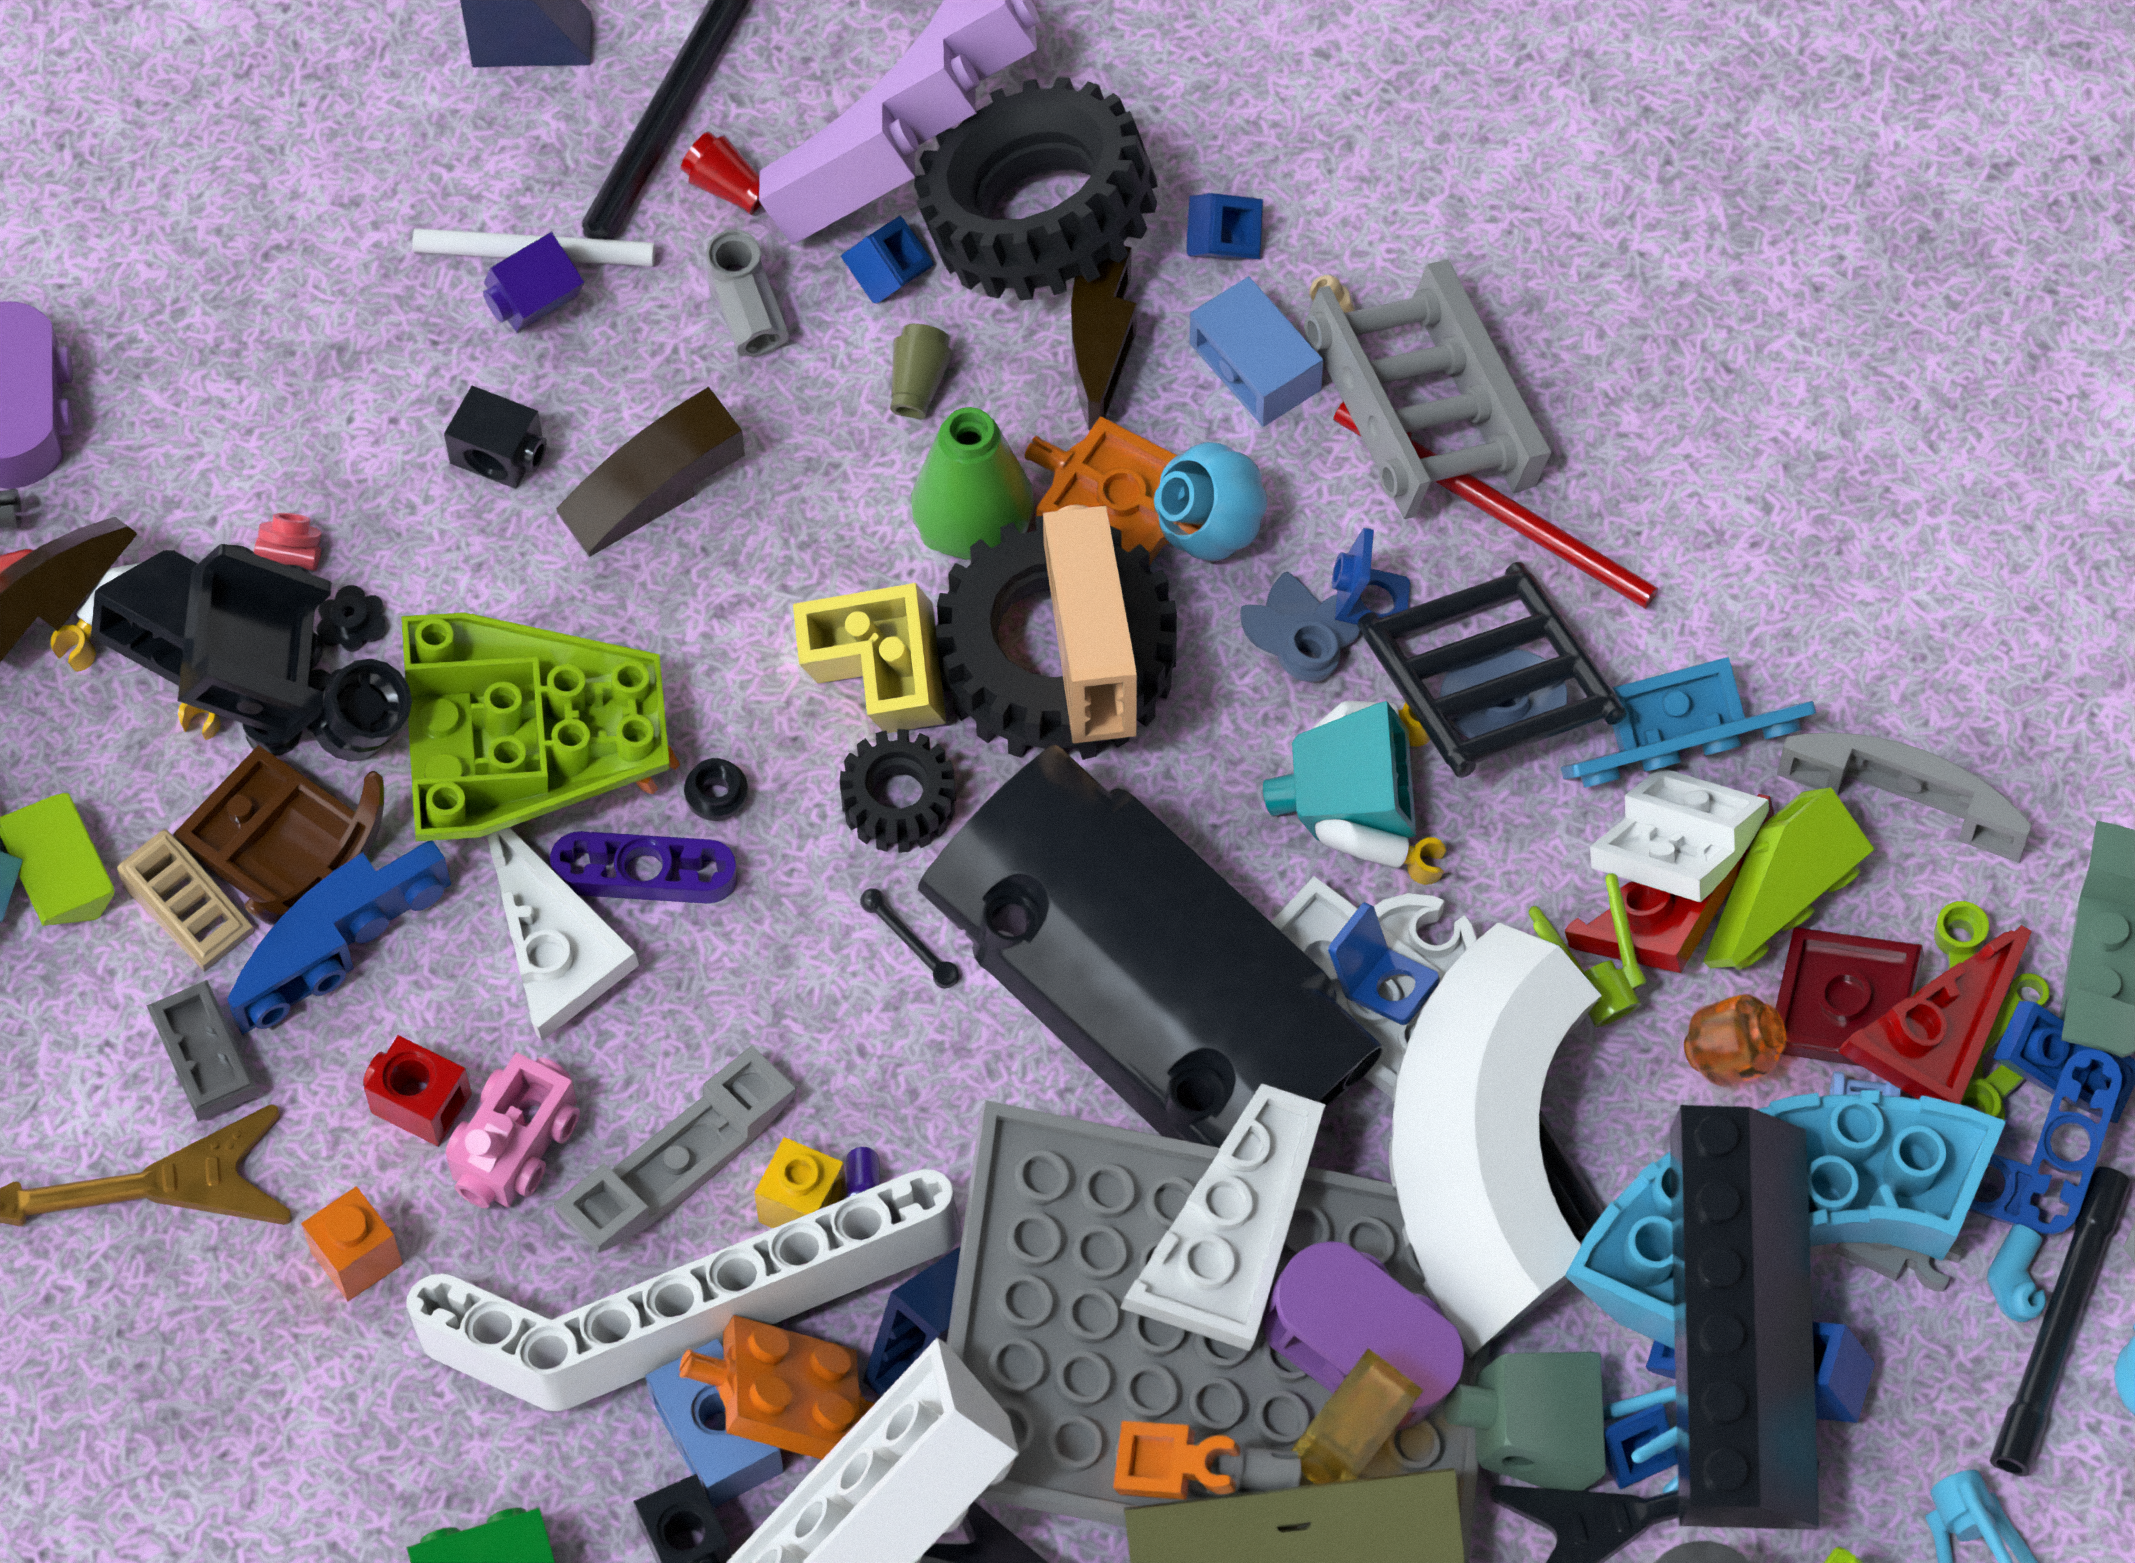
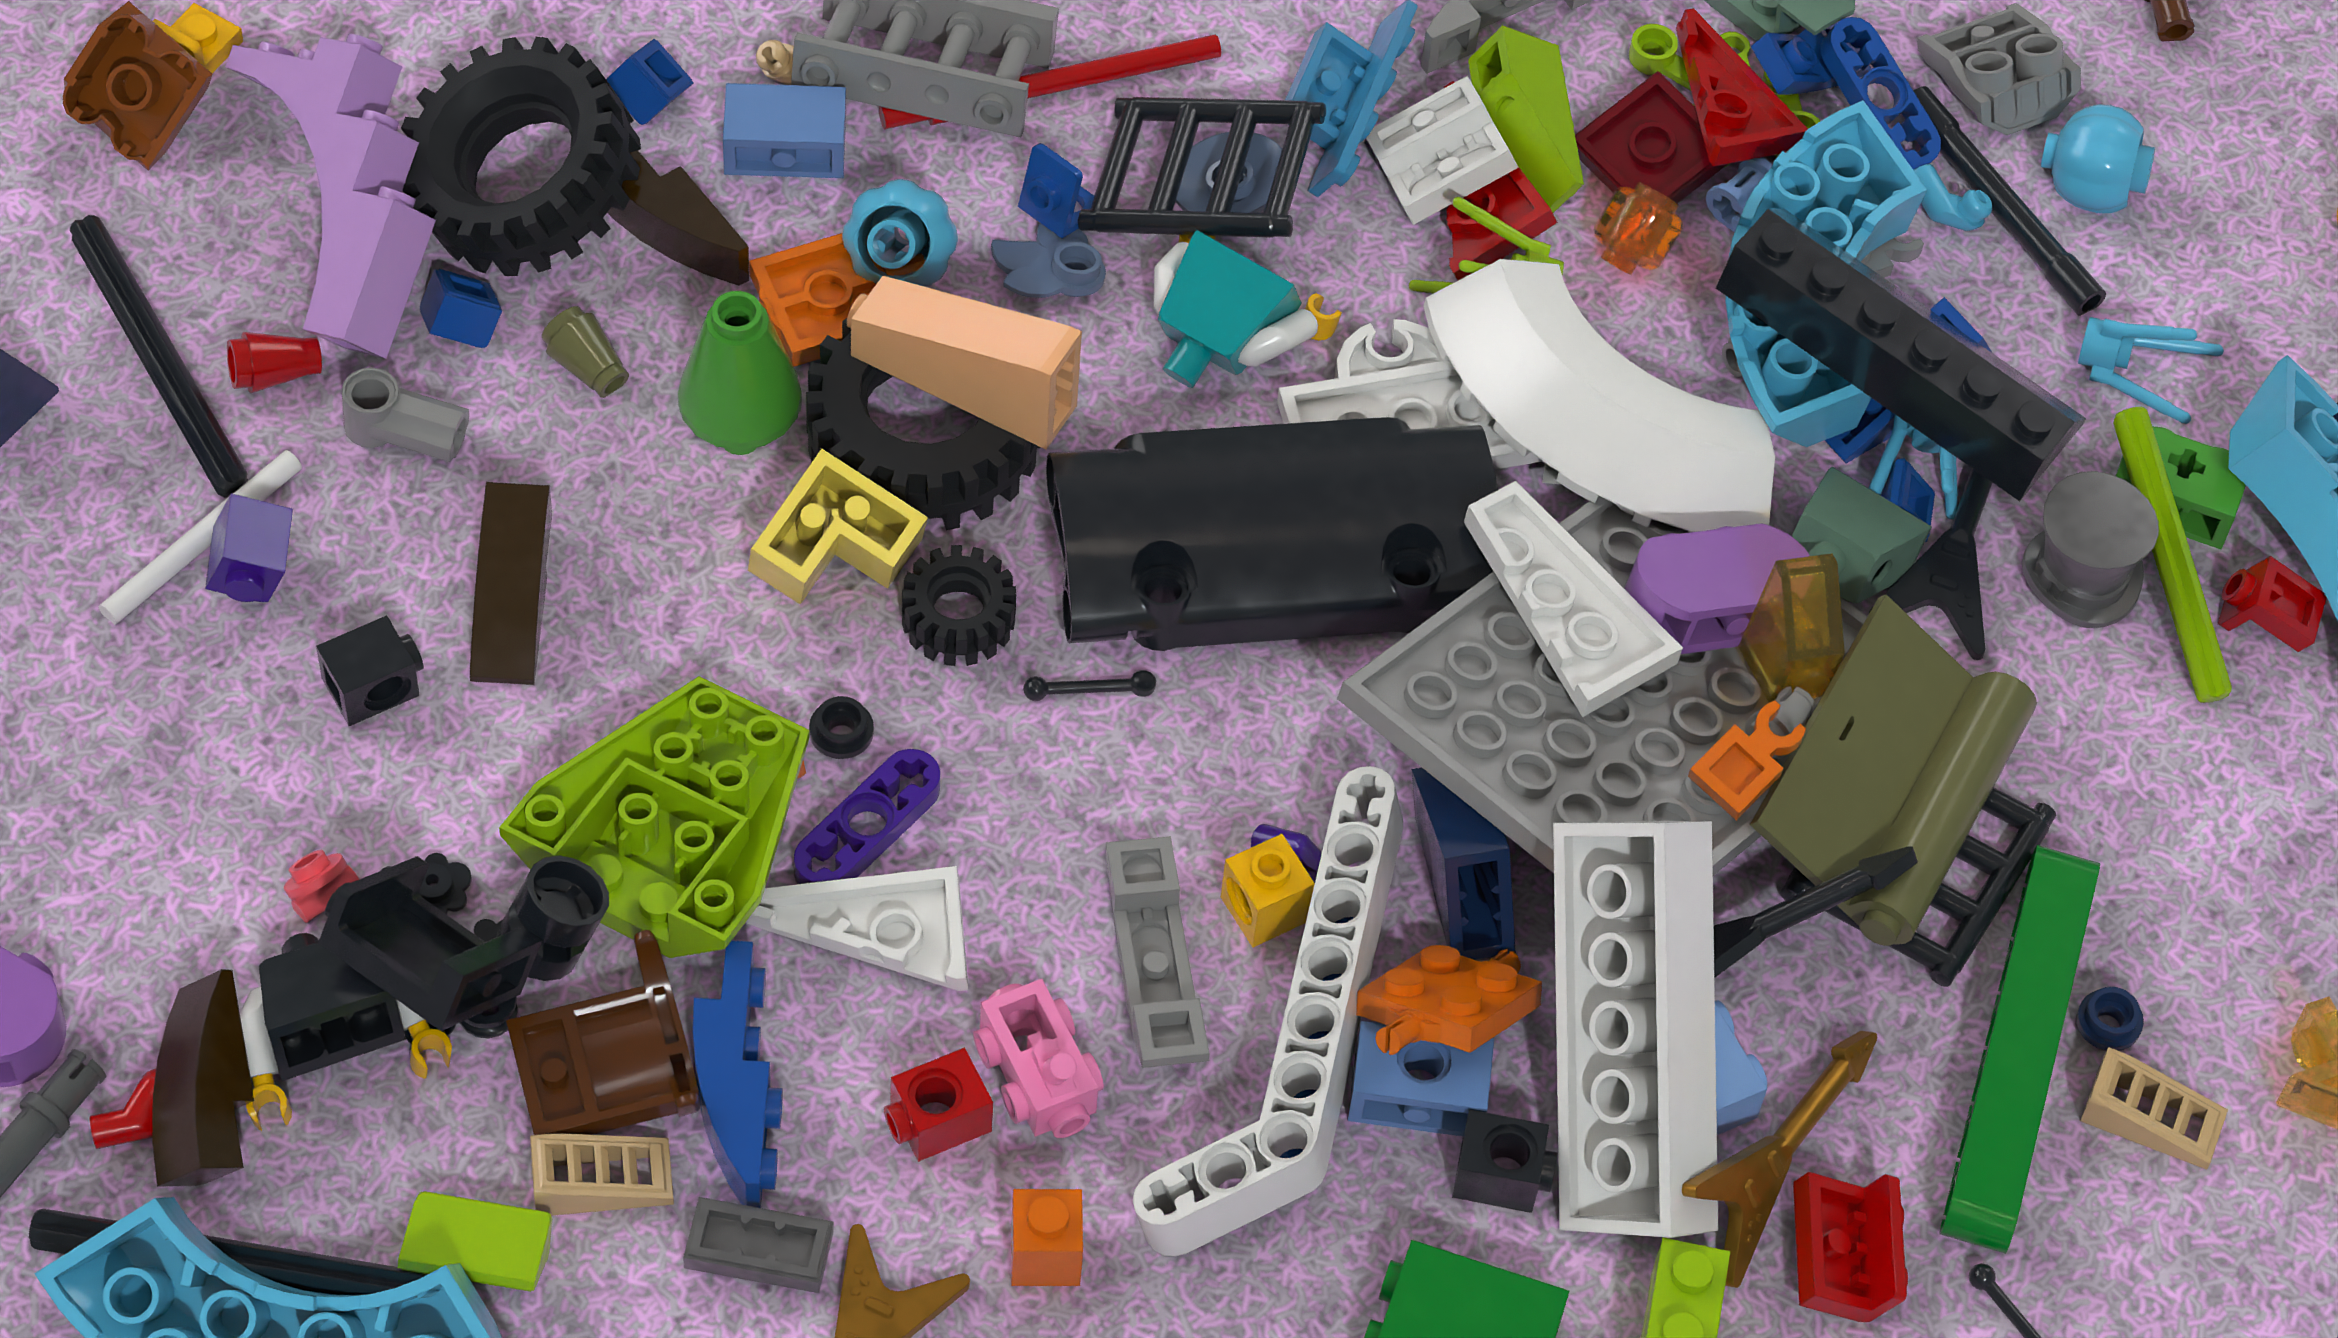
camera: 60 degrees left, 5 degrees down
(1365, 962) = (1394, 391): blue bracket -> none

